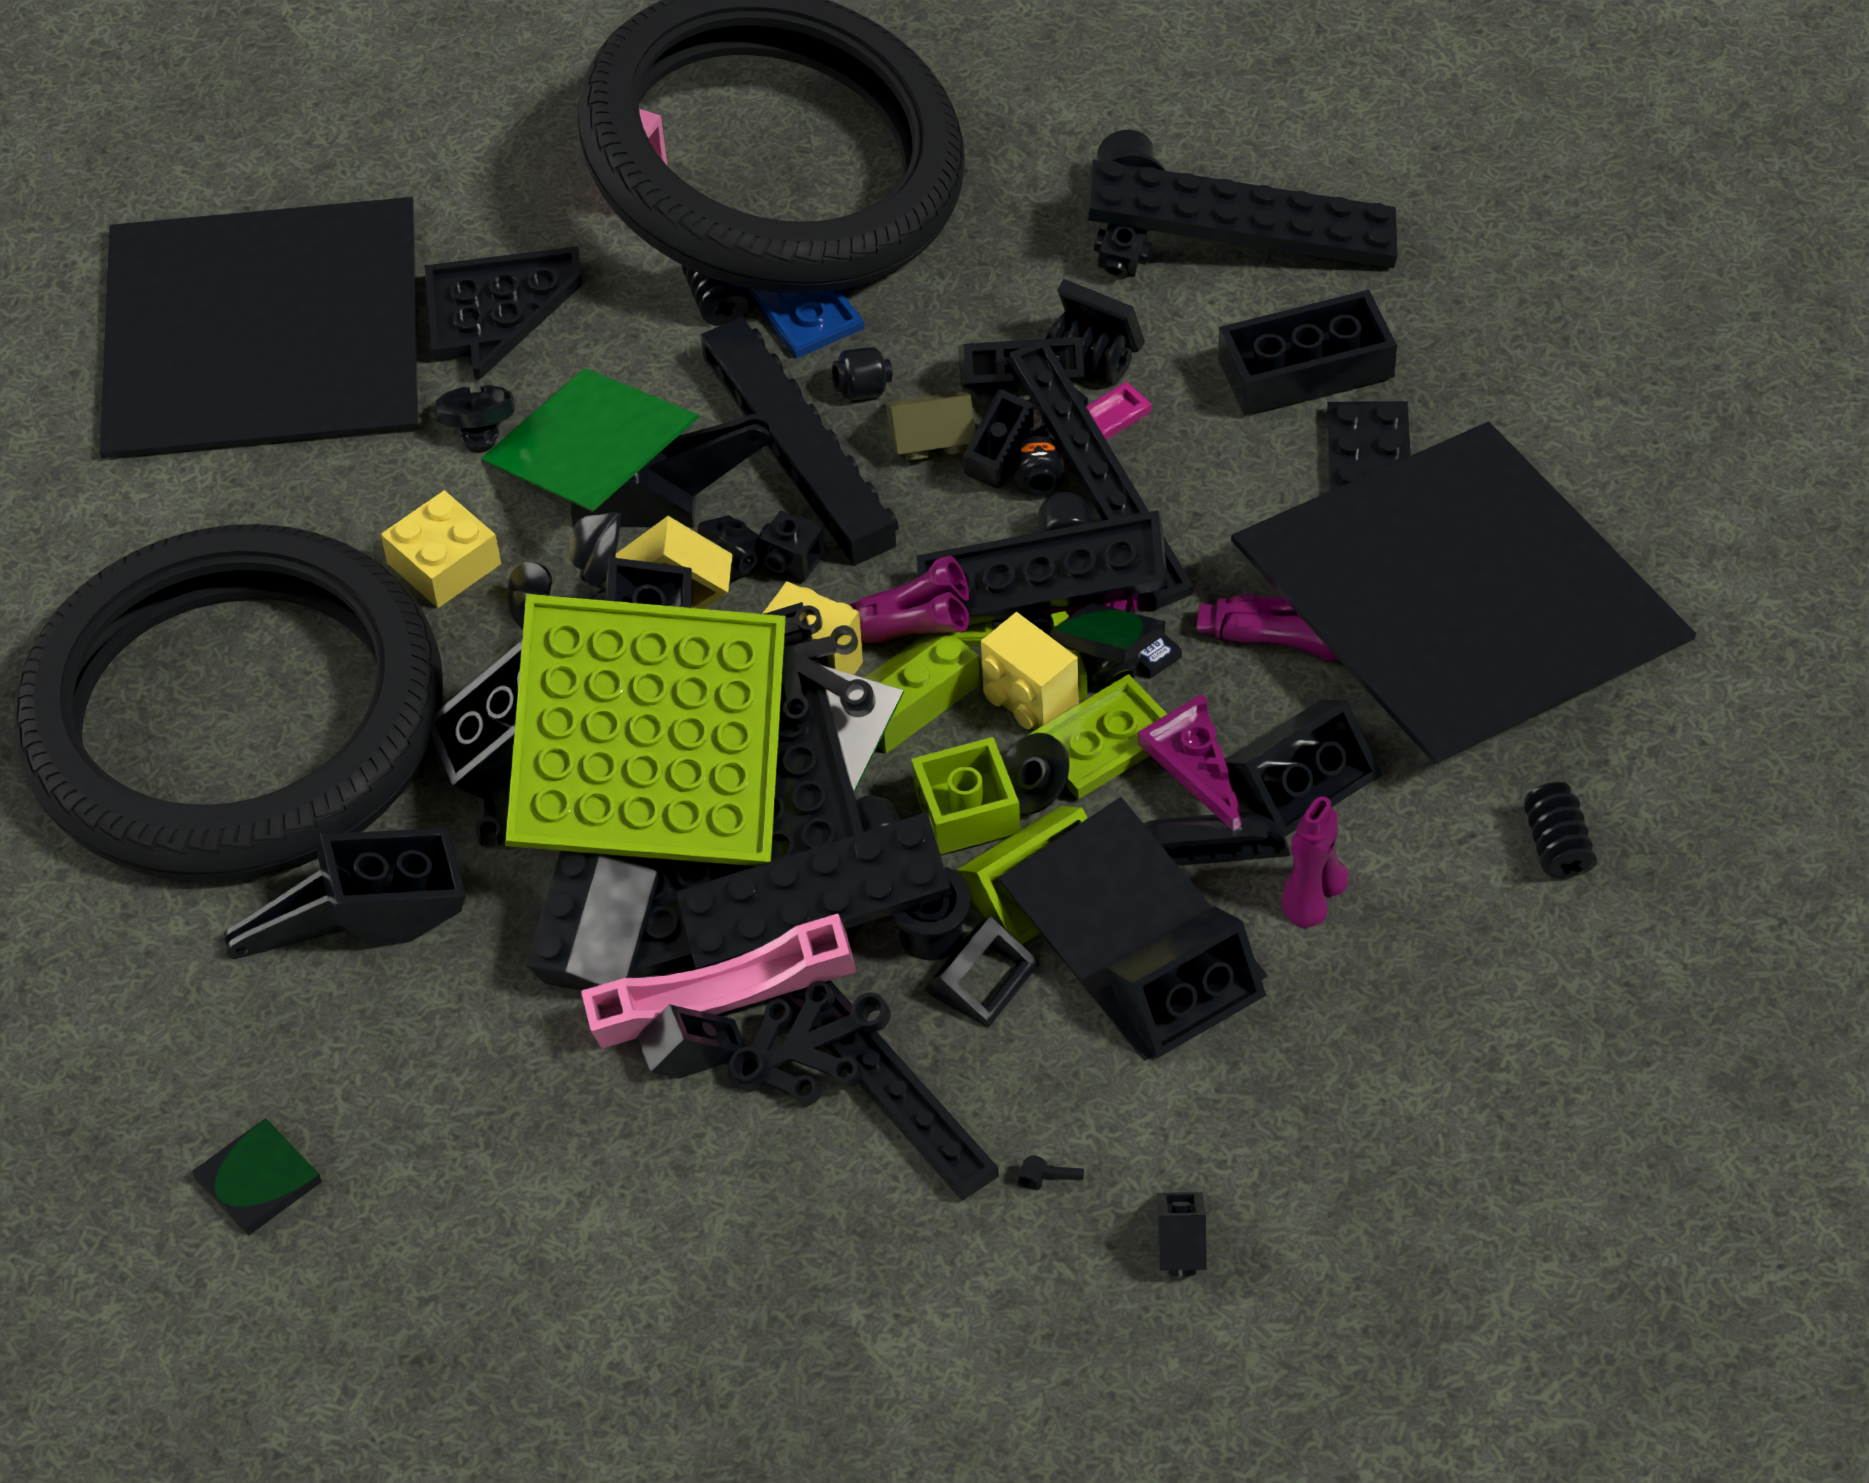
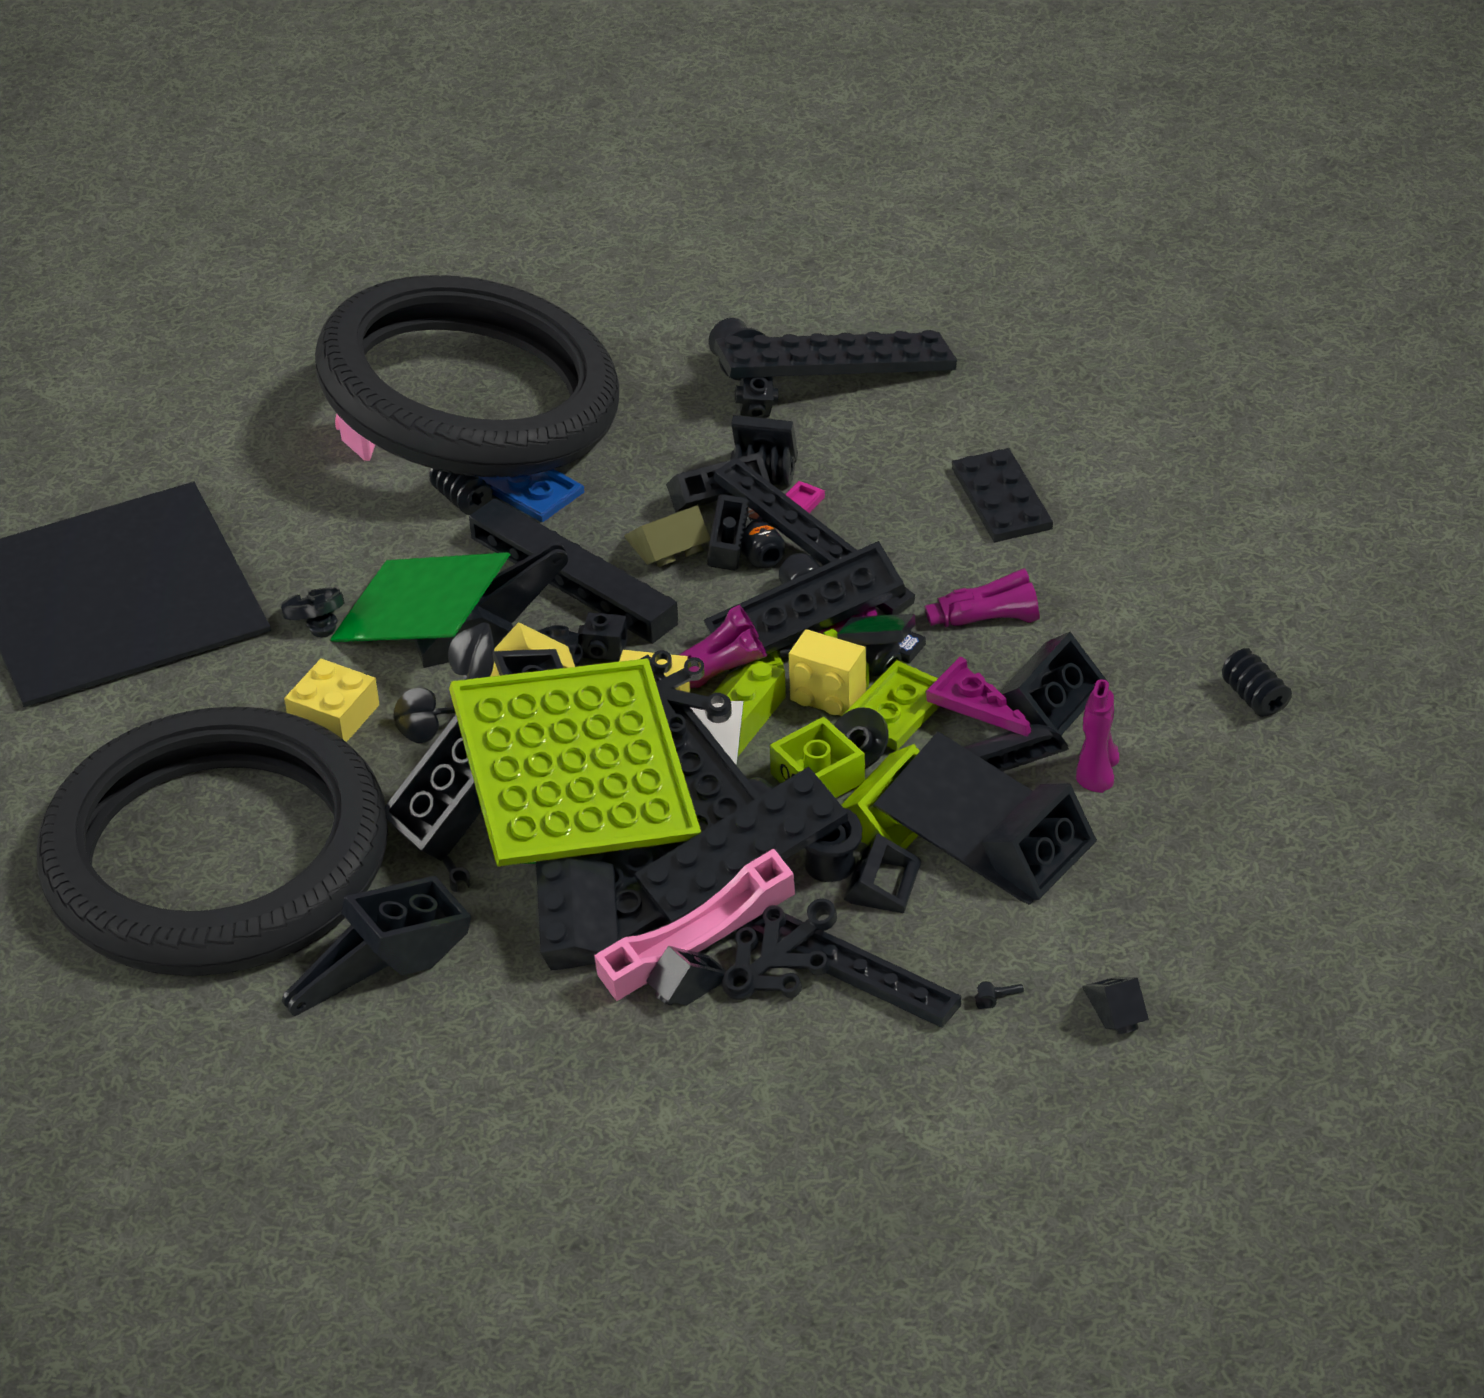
camera: 20 degrees left, 10 degrees down
(257, 1176) = (387, 1155): dark green tile -> none
(496, 302) = (293, 534): black wing -> none
(861, 373) = (600, 517): black head -> none
(1307, 352) = (924, 430): black brick -> none
(1462, 590) = (1111, 550): black baseplate -> none

